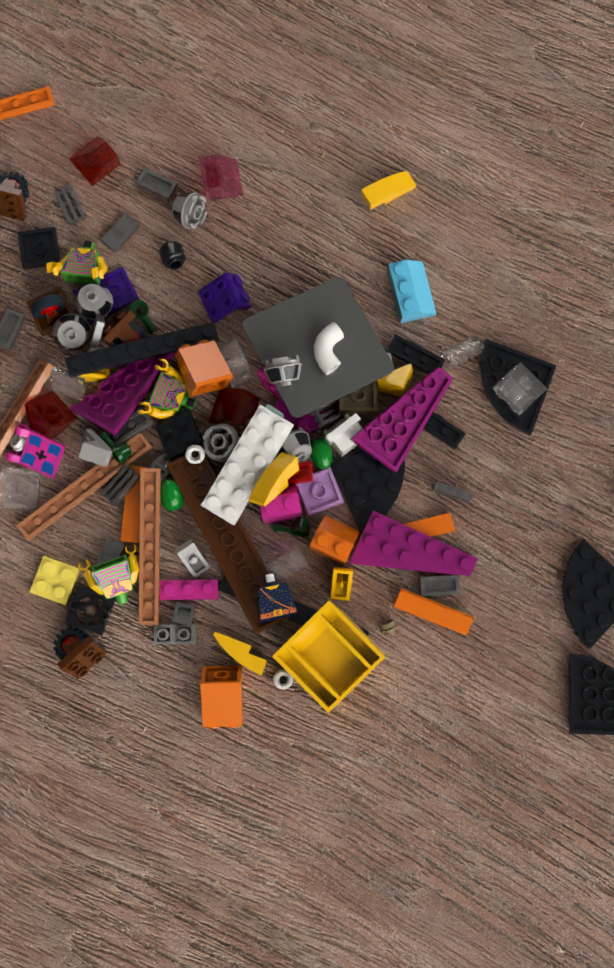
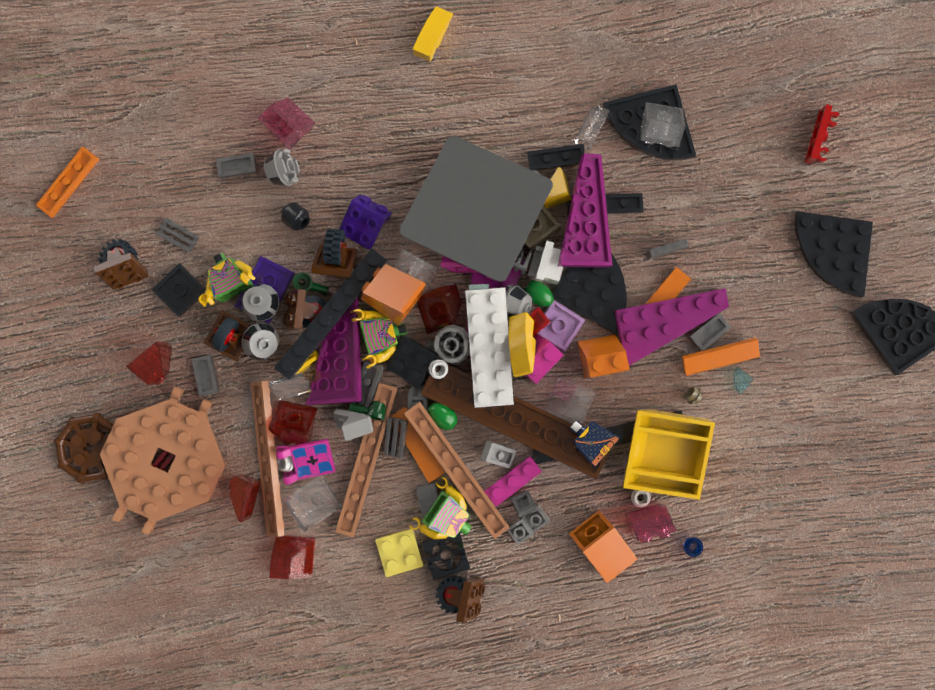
camera: 30 degrees left, 5 degrees up
(95, 160) = (170, 182): clear red slope -> none
(96, 333) = (283, 328): flat silver tile -> none
(120, 233) = (237, 228): flat silver tile -> none
(179, 306) = (334, 256): none -> plate
(241, 653) = (592, 501): yellow slope -> none
(274, 703) = (650, 523): none -> clear pink slope
(283, 370) = (466, 249): light grey cone -> none
(292, 757) = (697, 551): none -> clear blue plate
(299, 528) = (565, 366): dark green bar -> none
(324, 348) = (483, 204): white cylinder -> none
(341, 583) = (631, 387): yellow slope -> none
(410, 290) = (512, 106): medium azure slope -> none
(437, 644) = (741, 380): none -> clear light blue tile

